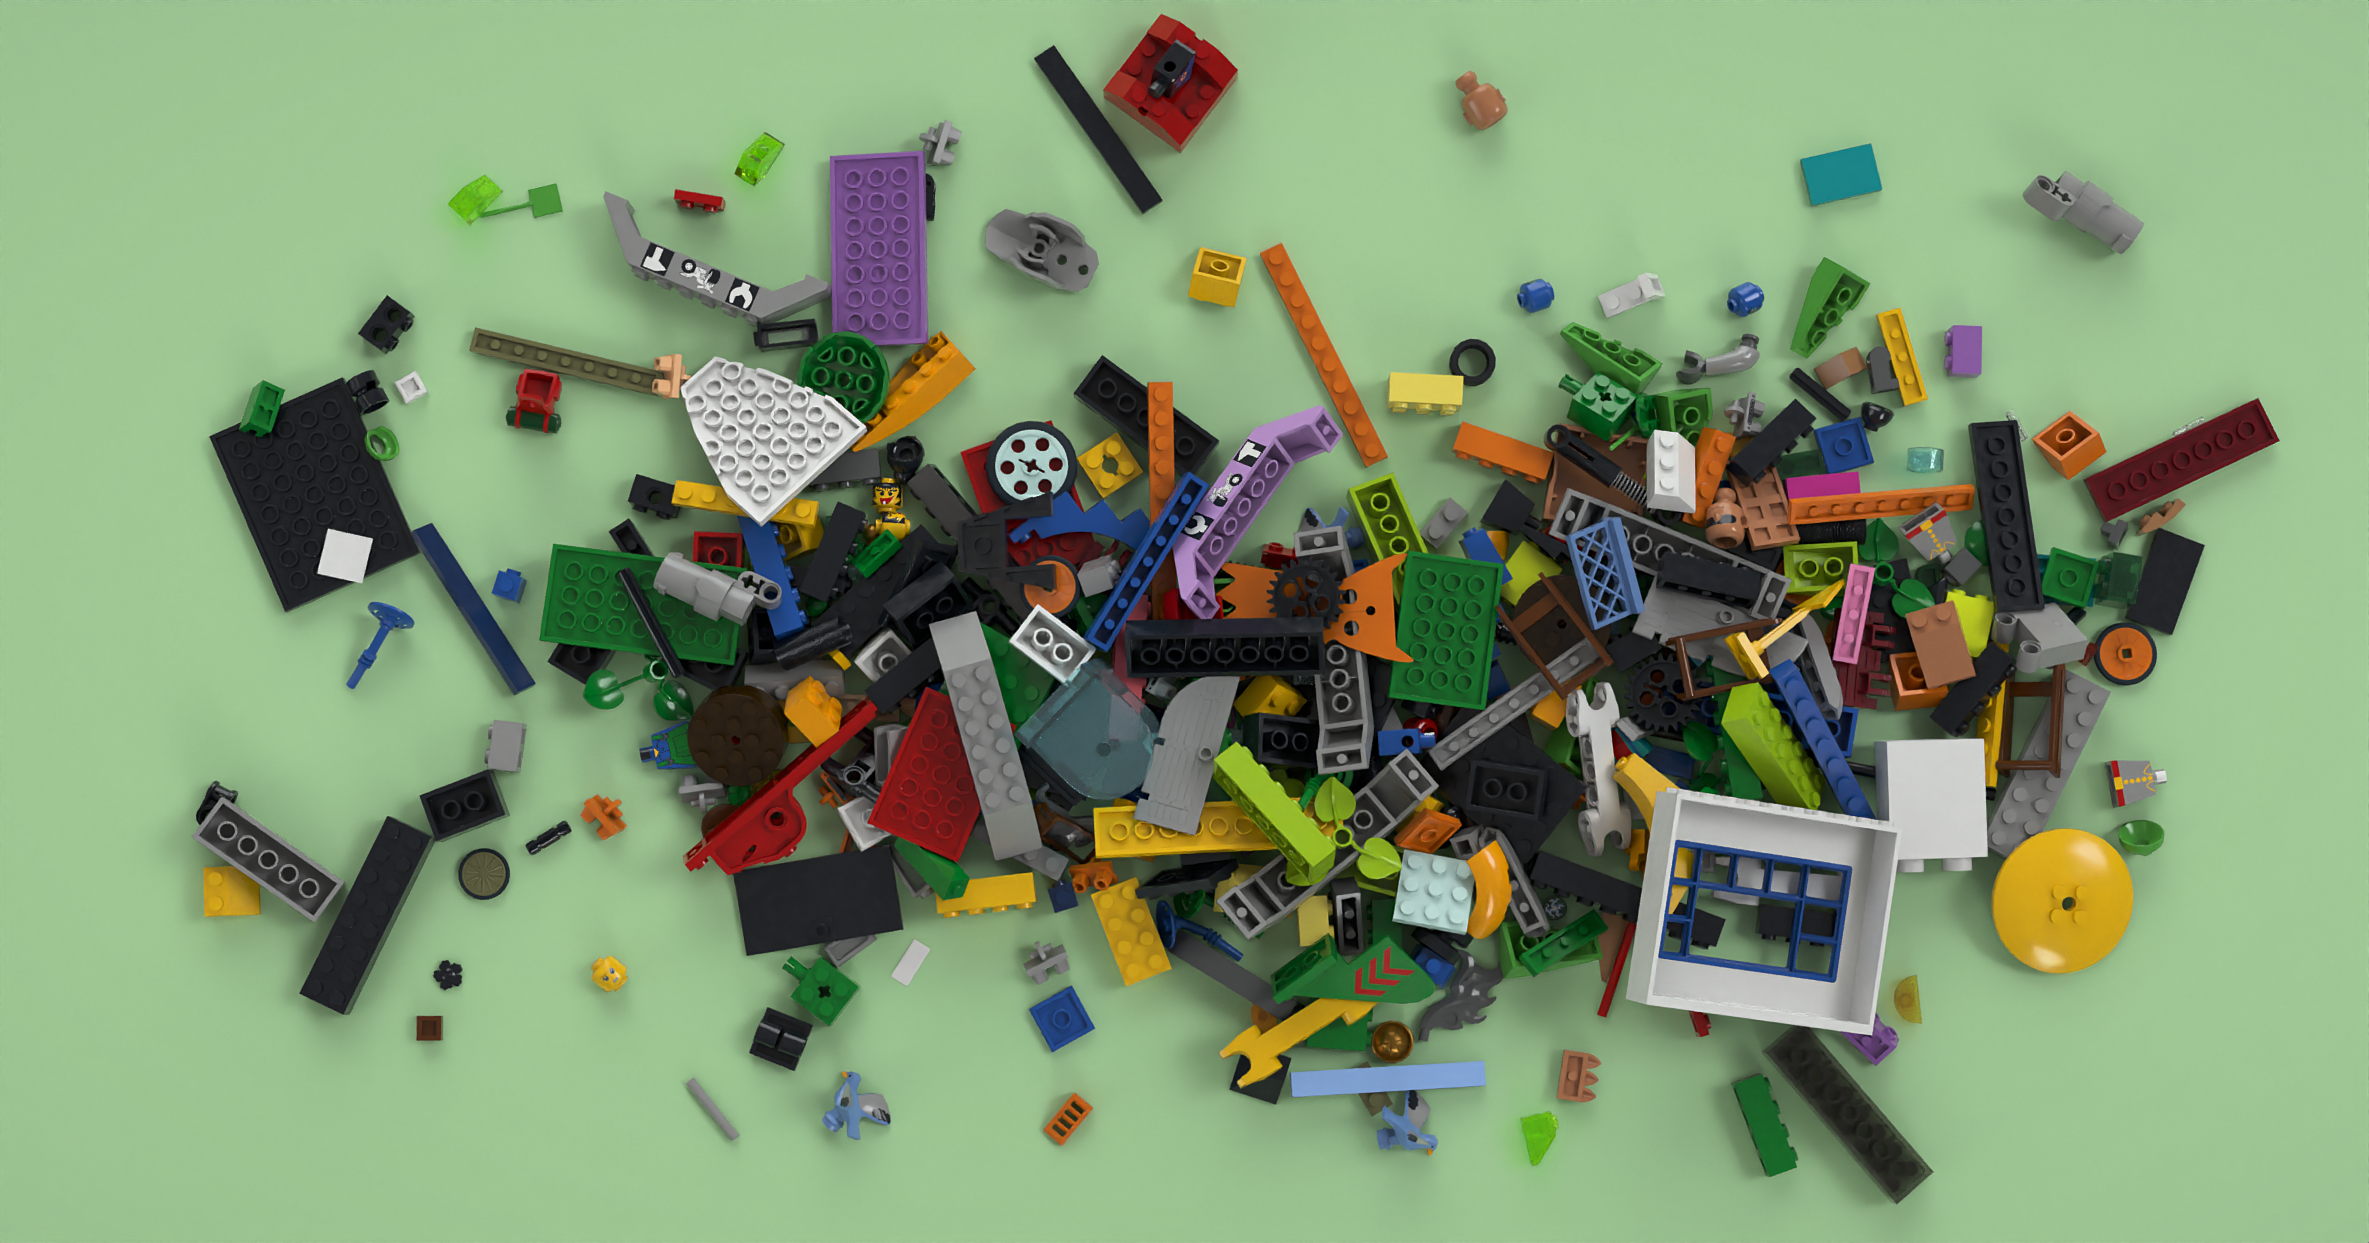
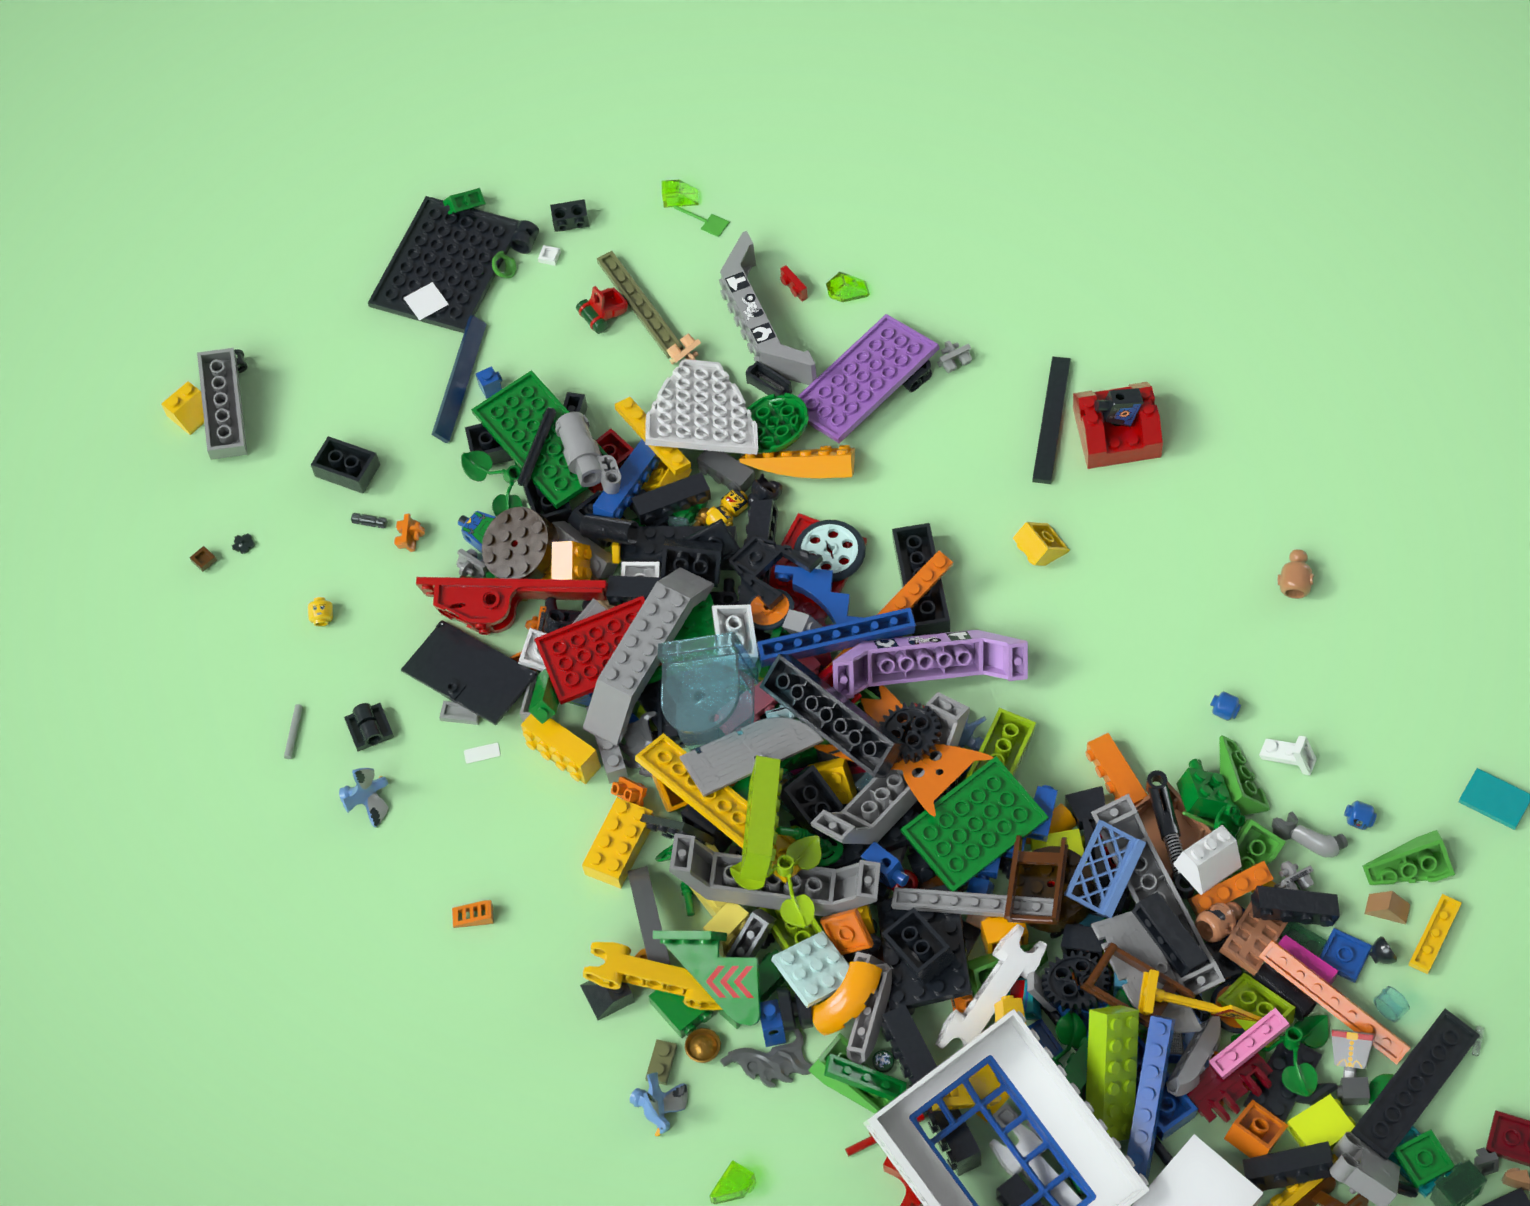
camera: 55 degrees right, 25 degrees down
(368, 915) = (237, 476): black brick -> none
(387, 622) = (409, 345): blue dish -> none
(484, 874) = (317, 509): olive wheel -> none
(506, 746) = (399, 456): light grey brick -> none
(643, 489) = (609, 394): black brick -> none
(810, 982) = (419, 720): green brick -> none
(877, 553) = (686, 519): green plate -> none
(1037, 243) = (954, 447): light grey piece -> none
(1044, 958) = (562, 821): light grey hips -> none
(1052, 819) = (631, 736): reddish brown sword -> none
(1062, 896) = (600, 789): dark blue brick -> none
(1062, 1018) = (529, 858): blue tile -> none
(1114, 449) = (866, 582): yellow brick -> none
(1169, 923) = (646, 857): blue dish -> none
(1323, 355) = (1061, 637): orange plate -> none
(1387, 1079) = (677, 1062): light blue tile -> none
(1424, 393) = (1101, 698): light yellow brick -> none
(1443, 523) = (1030, 782): light grey plate -> none
(1473, 344) = (1153, 697): black tyre -> none
(1575, 1076) = (792, 1171): nougat plate -> none
(1820, 394) = (1358, 911): black axle -> none
(1879, 371) = (1412, 927): dark grey leg -> none
(1928, 574) = (1328, 1076): dark green tile -> none
(1940, 644) = (1292, 1113): nougat slope -> none
(1964, 351) = (1481, 964): medium lavender brick -> none
(2070, 445) = (1503, 1082): orange slope -> none

